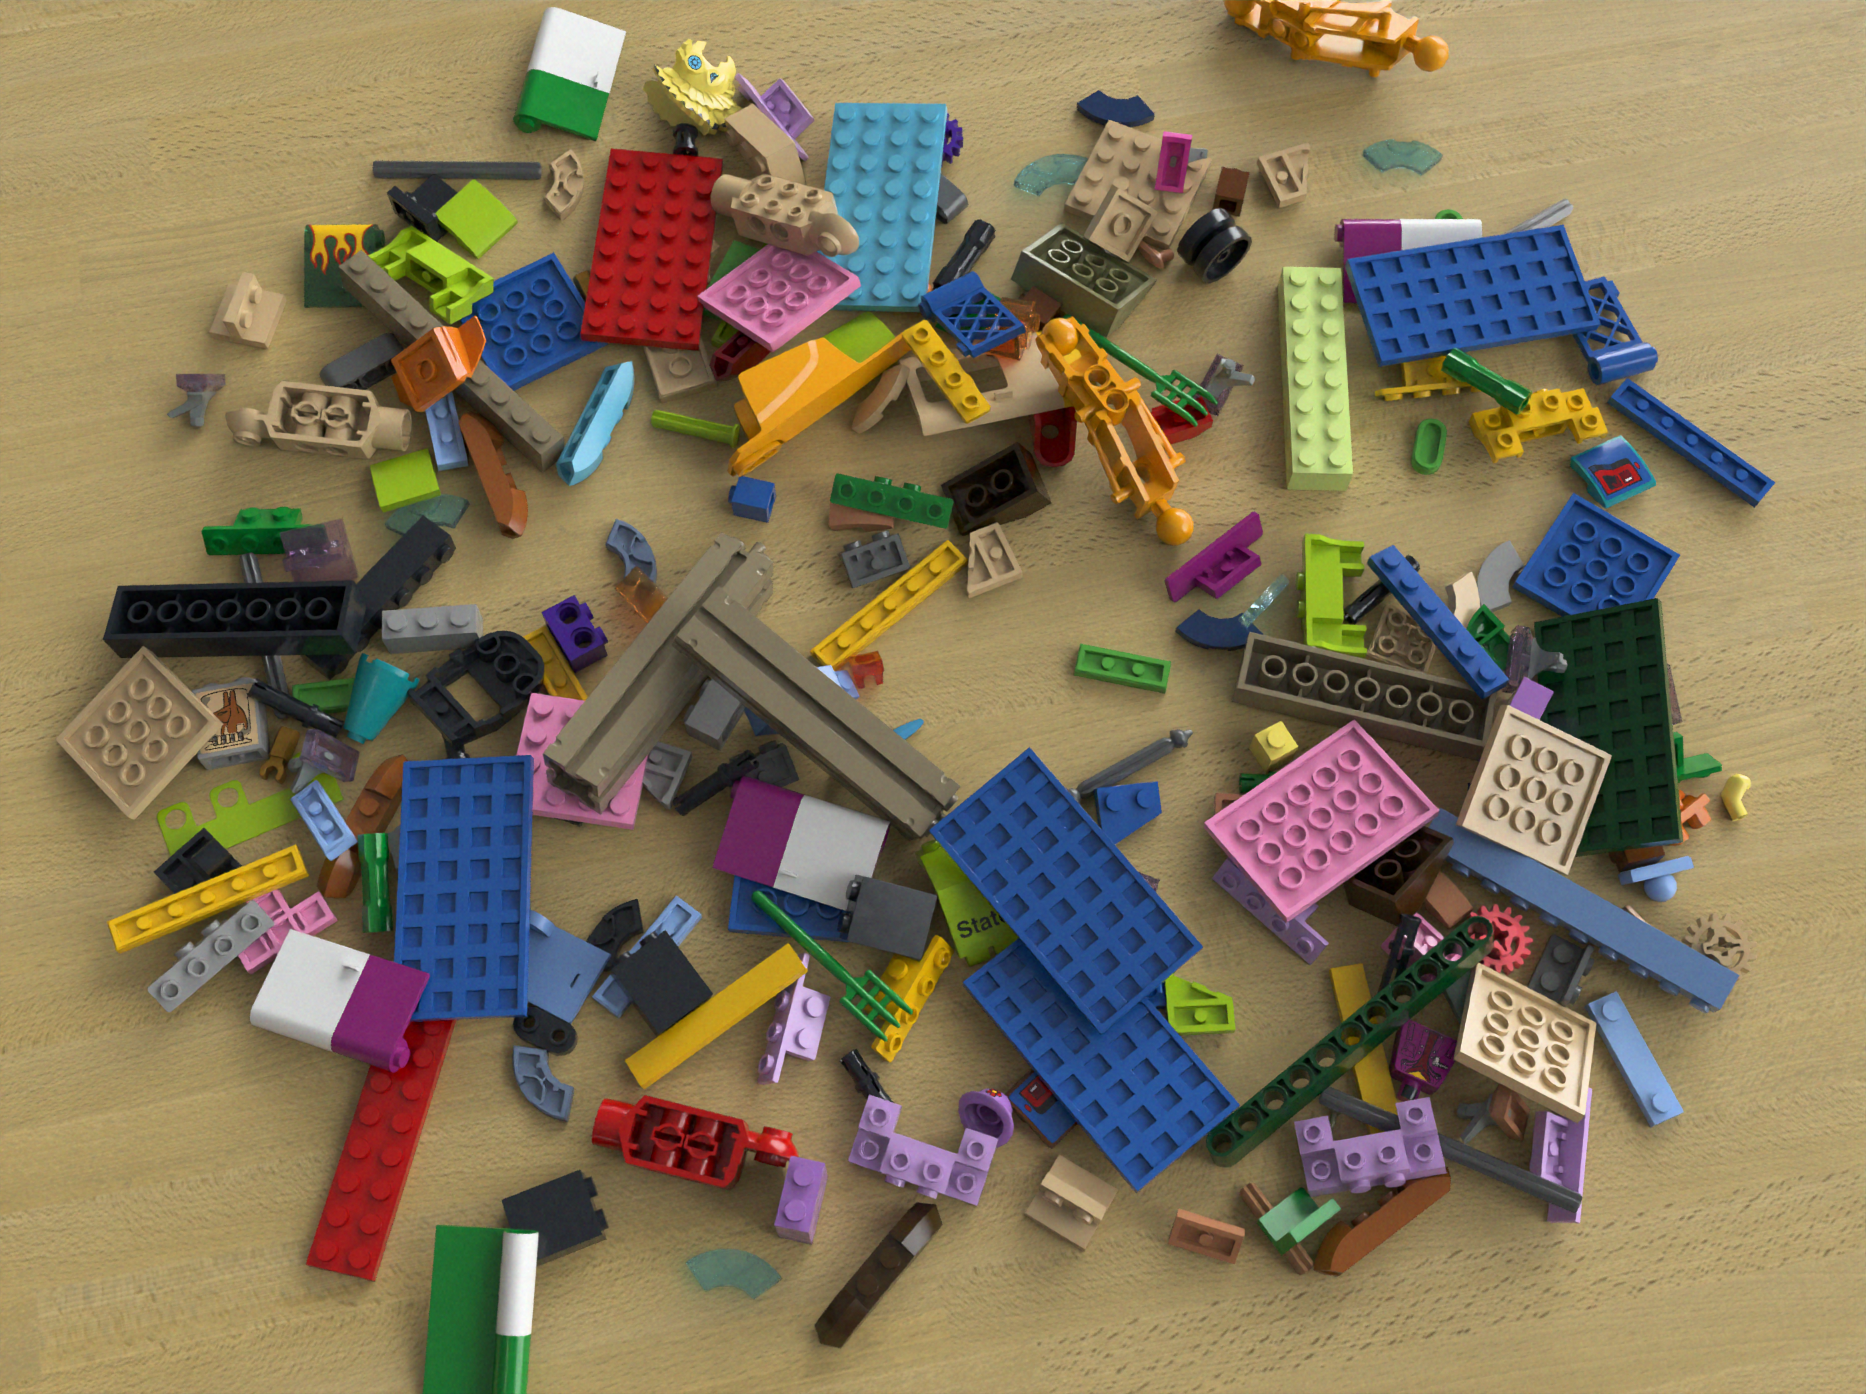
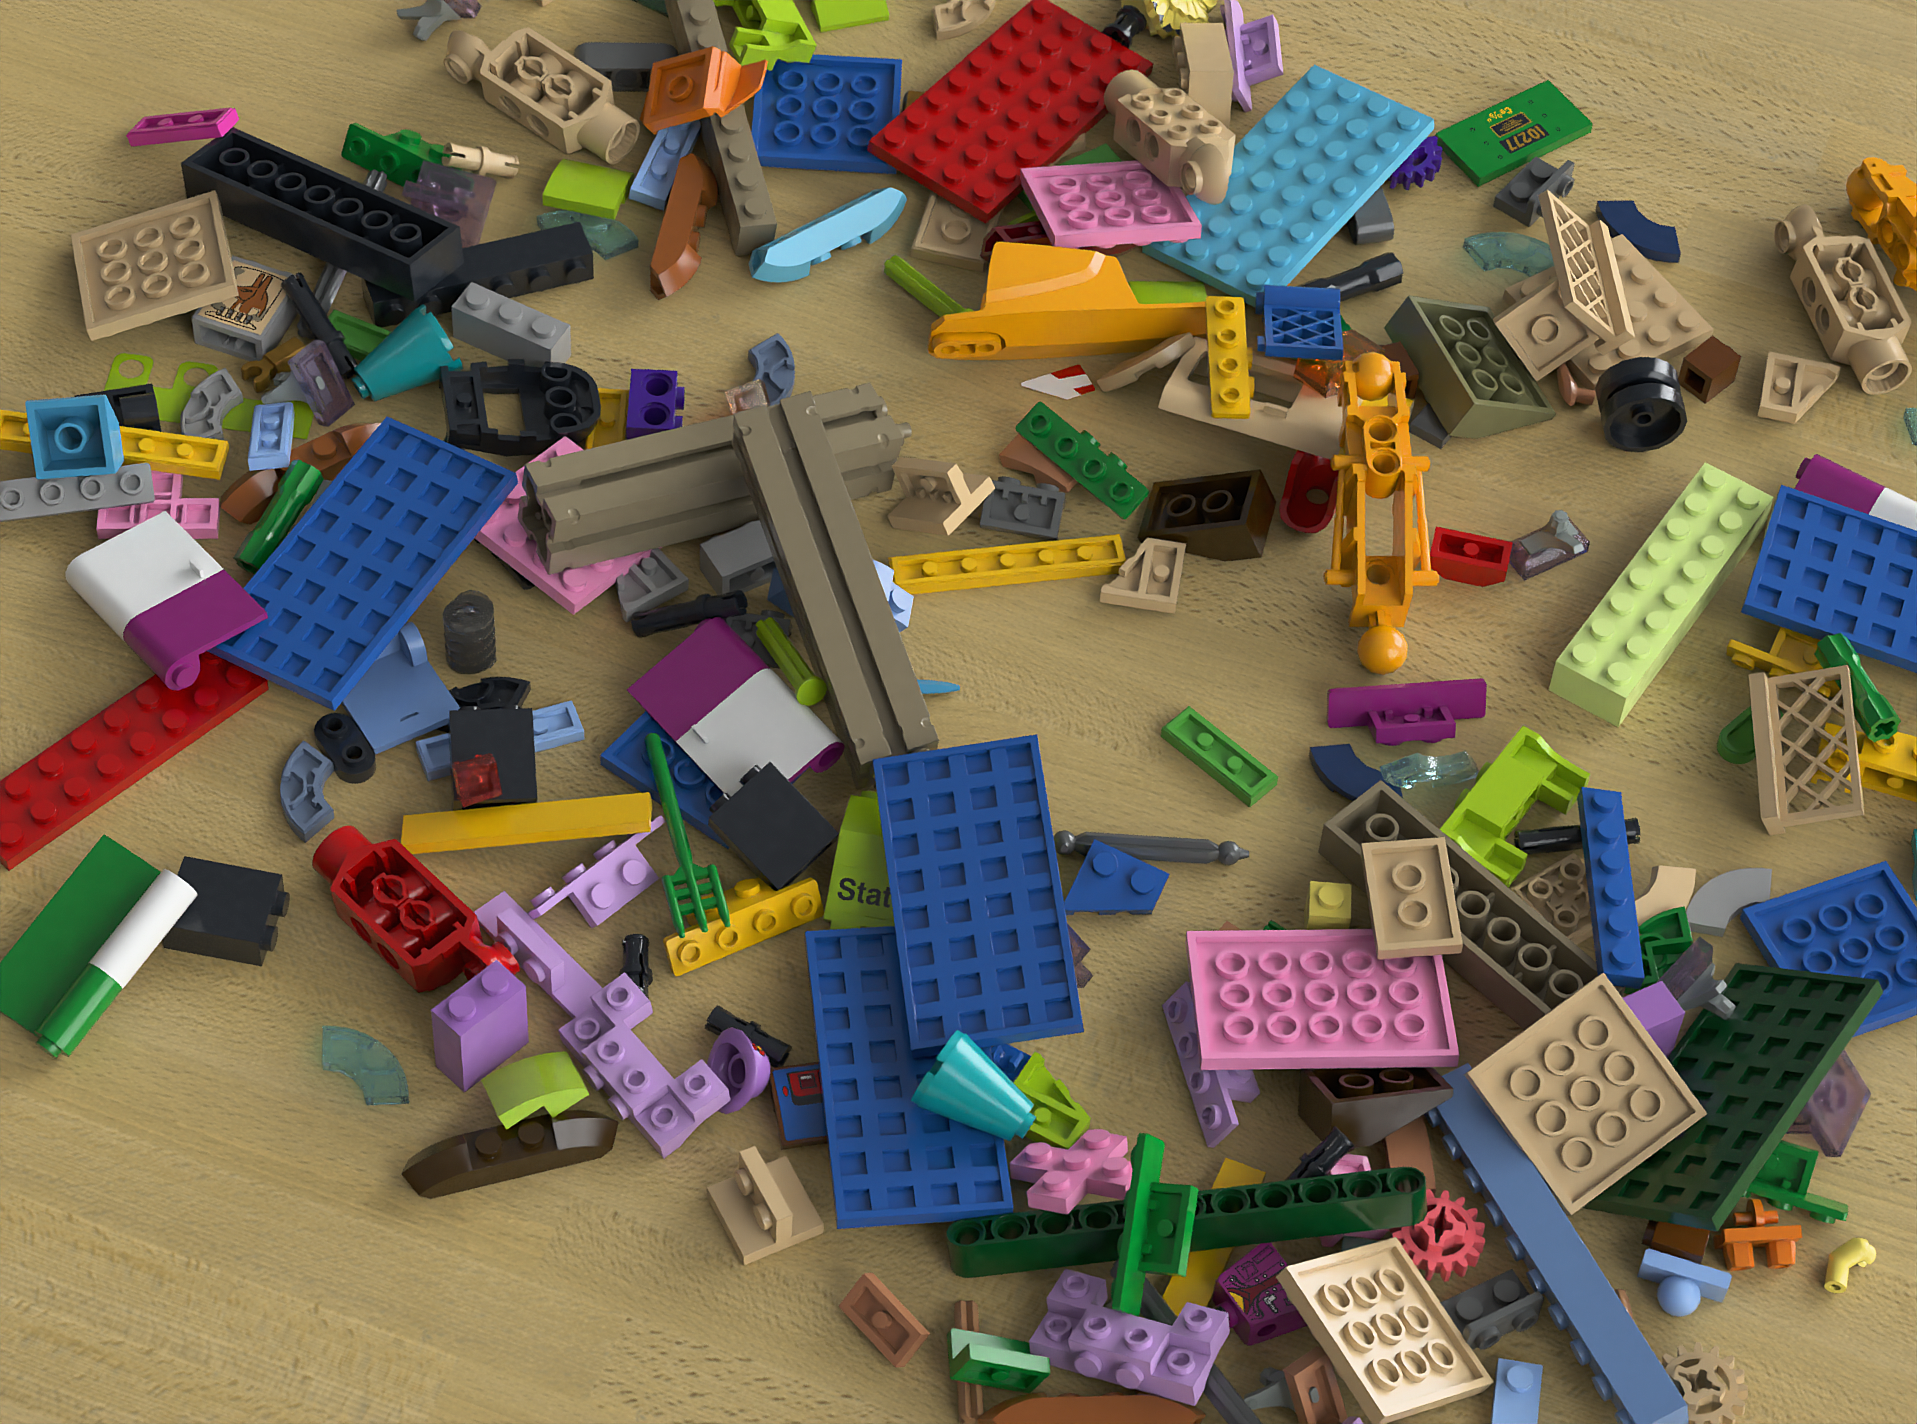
camera: 30 degrees right, 15 degrees down
(79, 604) = (183, 126): none -> dark pink tile
(190, 922) = (74, 437): none -> dark azure slope
(256, 822) = (209, 406): none -> light grey tile
(315, 504) = (480, 160): none -> tan pin
(576, 893) = (470, 633): none -> clear smoke piece
(668, 1012) = (476, 779): none -> clear red tile
(752, 498) = (936, 387): blue brick -> none
(794, 1109) = (538, 954): none -> lavender bracket
(812, 781) = (808, 687): none -> lime axle
(816, 587) = (936, 495): none -> tan bracket
(829, 442) = (1062, 383): none -> white sticker
(865, 665) = (938, 600): clear red tile -> none
(865, 1218) = (533, 1083): none -> lime slope
(972, 1080) = (775, 1049): none -> black pin
(988, 80) = (1513, 132): none -> green tile
(1030, 117) = (1520, 195): none -> dark grey bracket
(1123, 167) = (1587, 273): none -> tan fence
(1162, 382) = (1475, 504): green piece -> none
(1163, 1041) = (974, 1091): none -> teal cone
(1173, 161) = (1658, 295): dark pink piece -> none
(1256, 1046) = (1067, 1176): none -> bright pink plate
(1281, 90) = (1848, 300): none -> tan brick
(1332, 712) = (1411, 898): none -> tan plate
(1351, 1067) = (1155, 1226): none -> green bracket
(1460, 458) = (1770, 754): none -> tan fence

